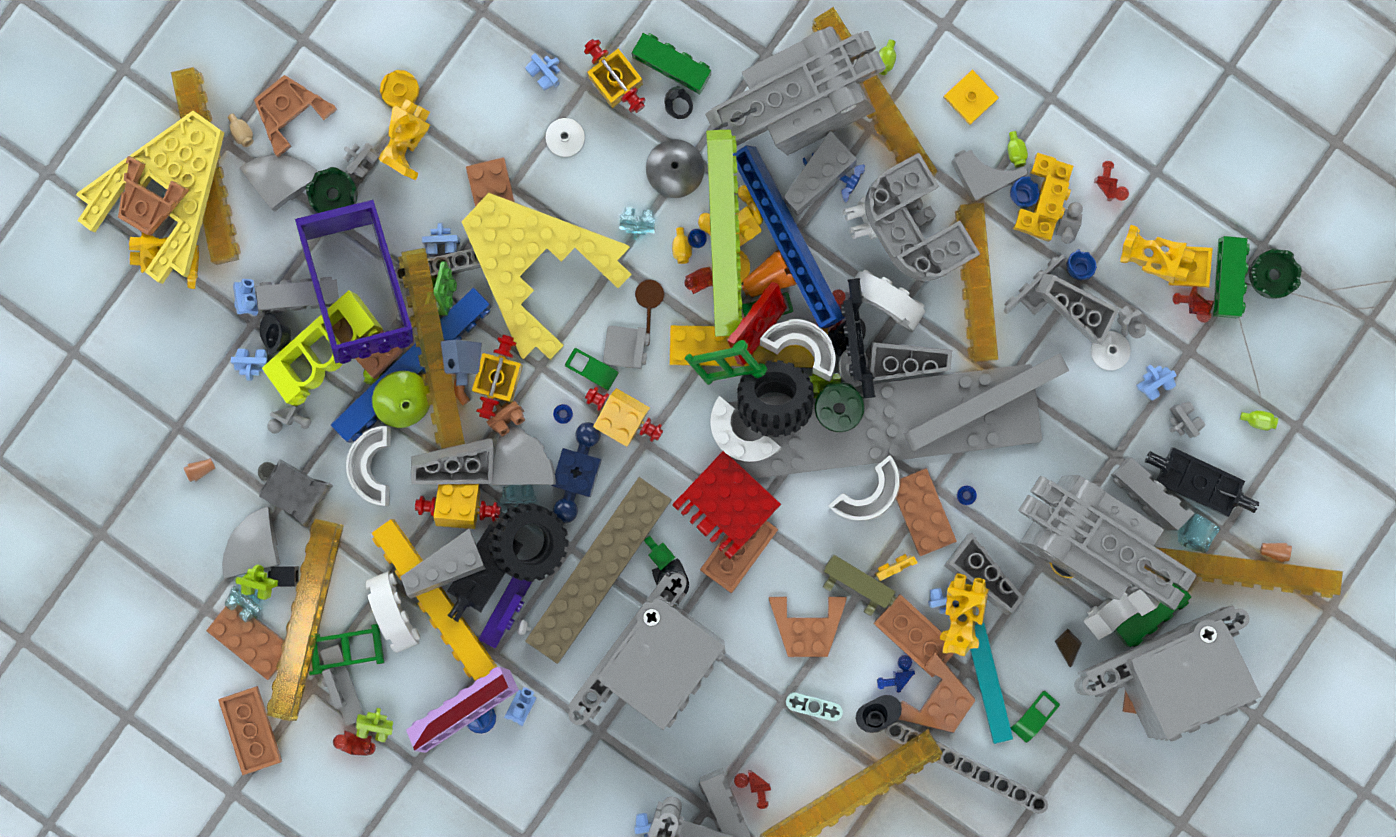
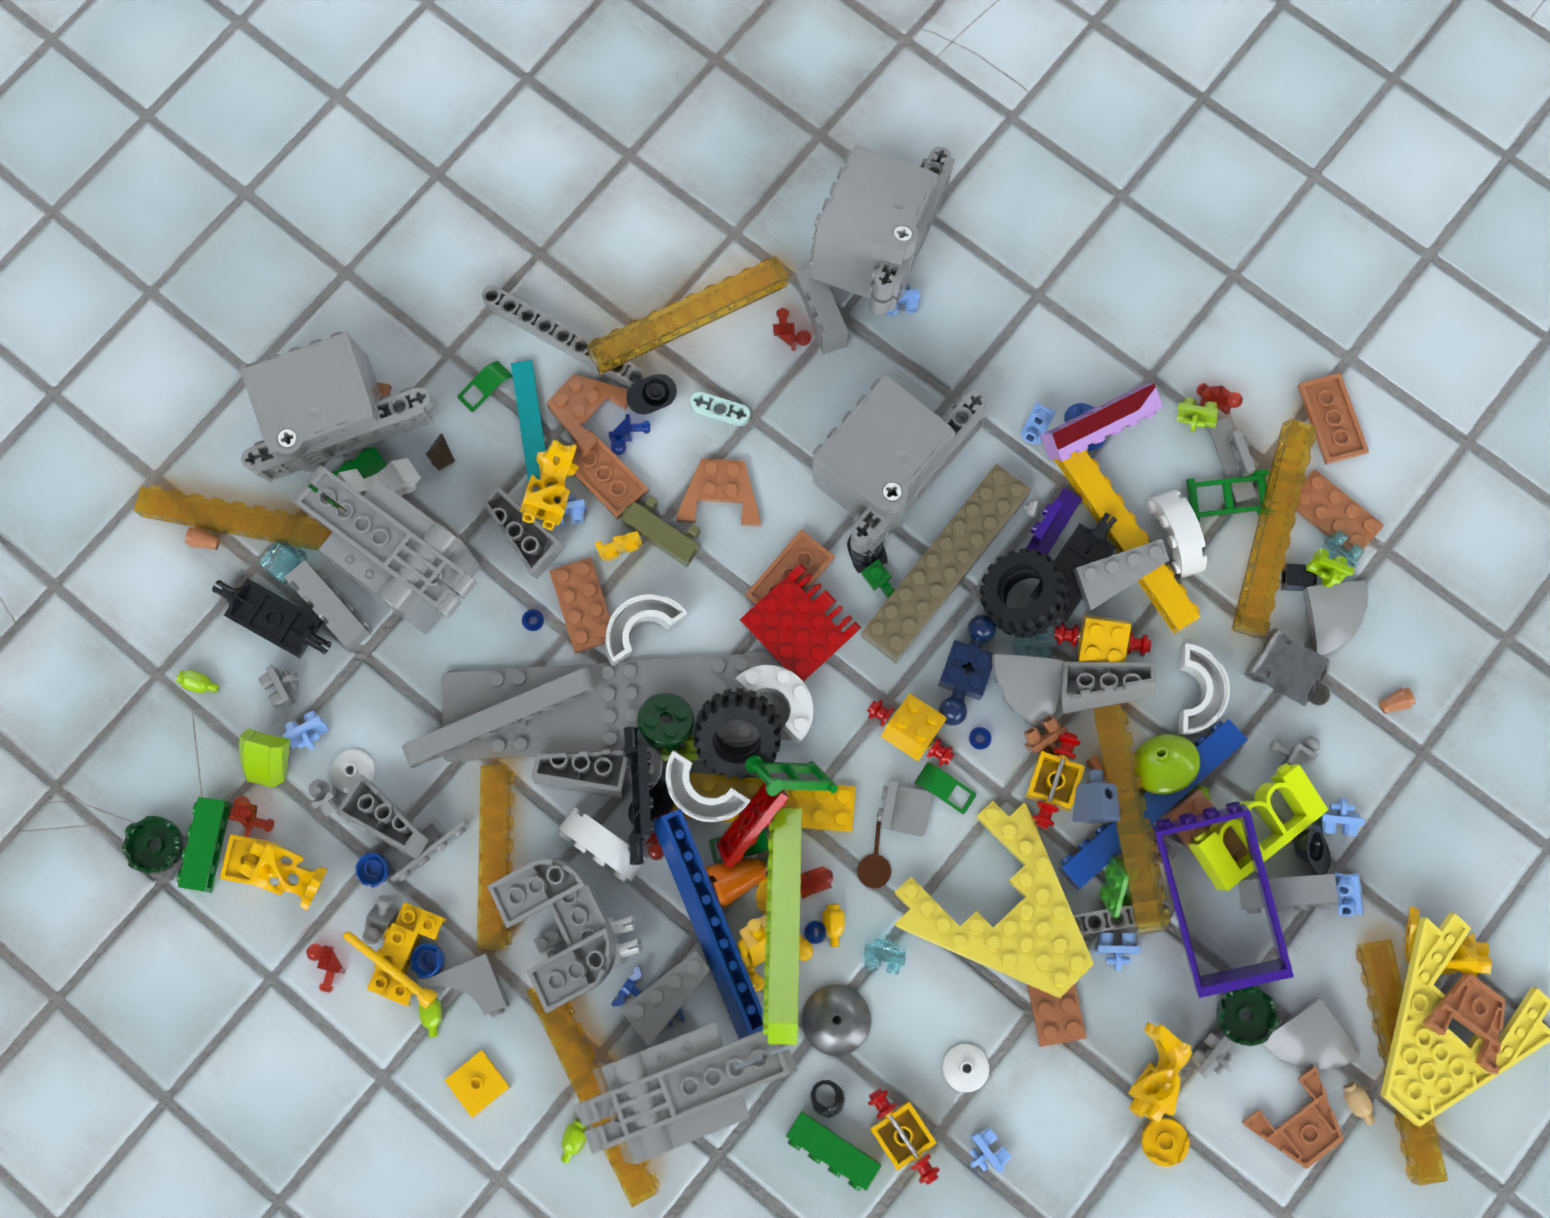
camera: 175 degrees left, 10 degrees down
(1023, 161) = (424, 995): none -> yellow piece
(1189, 355) = (263, 757): none -> lime slope

